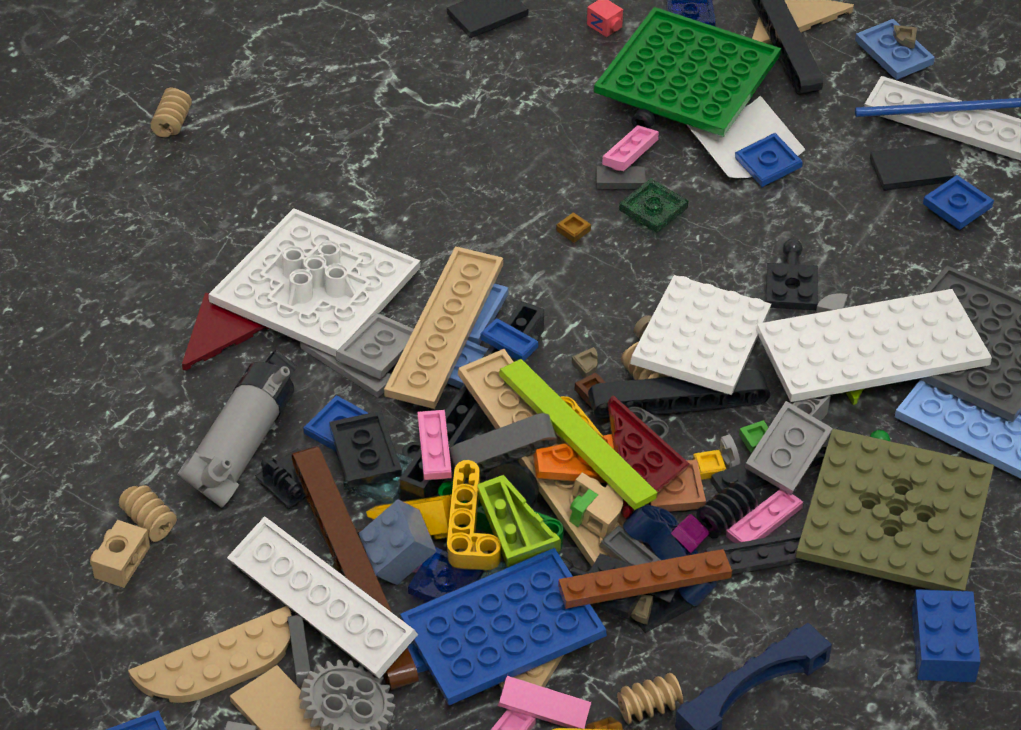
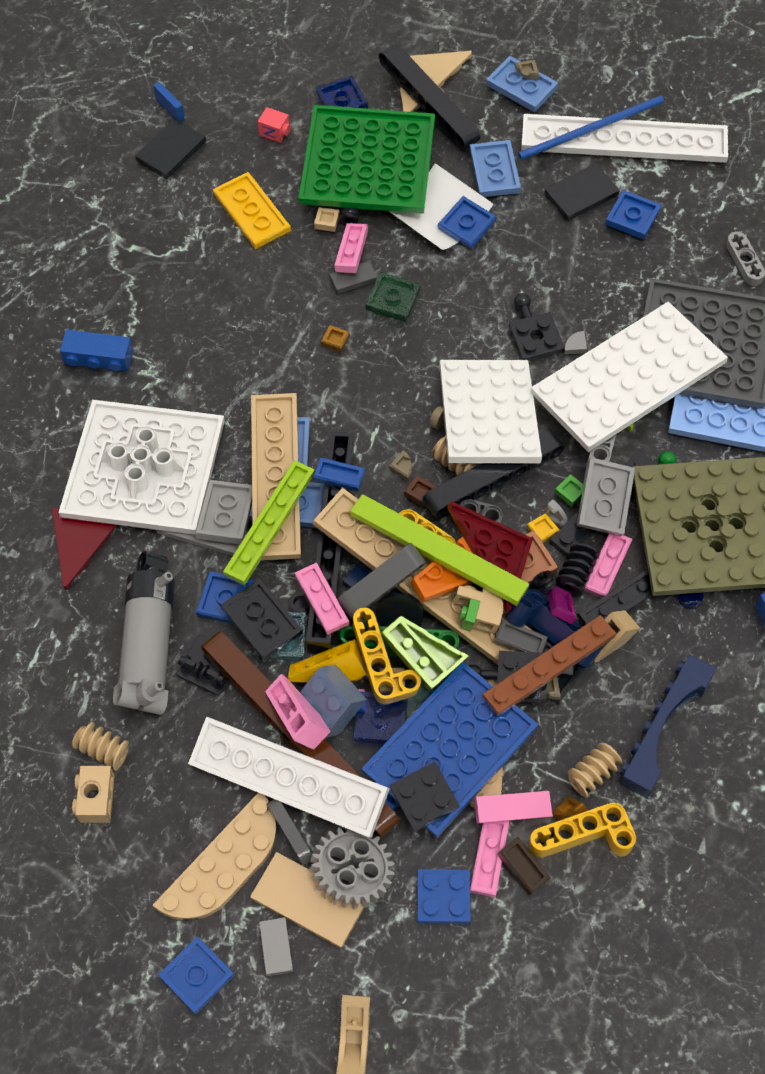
camera: 20 degrees left, 15 degrees up
(320, 167) = (96, 350): none -> blue brick
(356, 538) = (297, 713): none -> bright pink slope
(414, 361) = (269, 522): none -> lime plate
(452, 657) = (424, 796): none -> black plate
(544, 88) = (251, 210): none -> yellow tile
(618, 116) = (326, 219): none -> tan plate
(683, 508) = (544, 581): none -> black bush
(744, 582) = (623, 626): none -> tan slope
(824, 119) = (495, 168): none -> medium blue plate
(841, 579) = (691, 600): none -> clear blue tile

